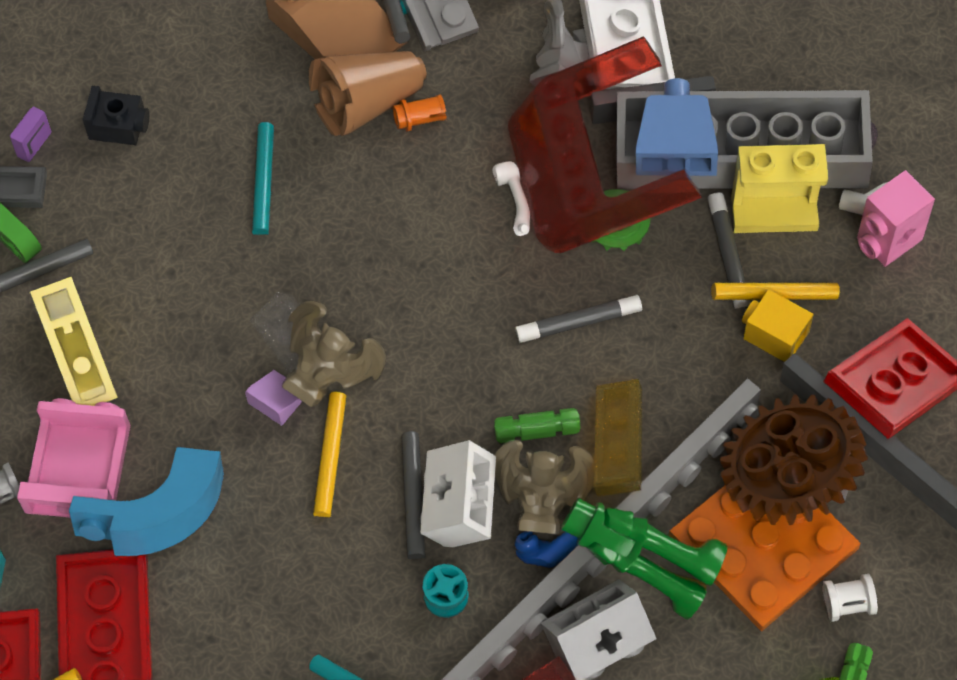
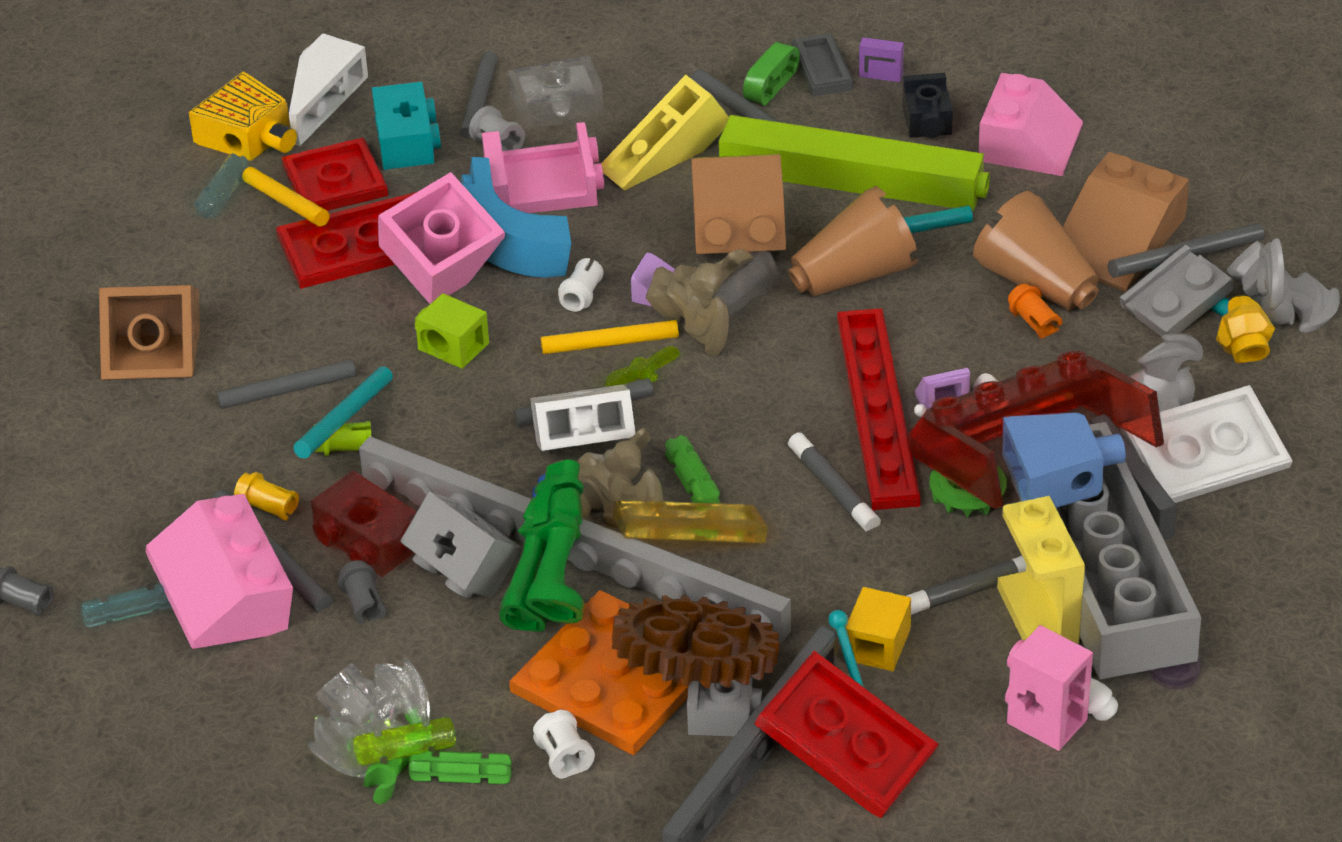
camera: 75 degrees right, 20 degrees down
(170, 198) = (860, 161): none -> lime brick
(172, 565) = (439, 237): none -> bright pink slope
(175, 50) = (1028, 126): none -> bright pink slope
(222, 298) = (738, 203): none -> medium nougat slope
(263, 466) = (577, 290): none -> white pin
(287, 587) = (452, 330): none -> lime brick
(303, 220) = (855, 247): none -> medium nougat cone
(385, 435) = (643, 368): none -> clear neon green piece
(443, 580) = (480, 438): teal wheel -> none
(495, 262) = (878, 410): none -> red tile
(497, 206) = (943, 385): none -> lavender slope
(788, 347) = (838, 620): none -> teal hinge
(790, 291) = (926, 623): yellow bar -> none

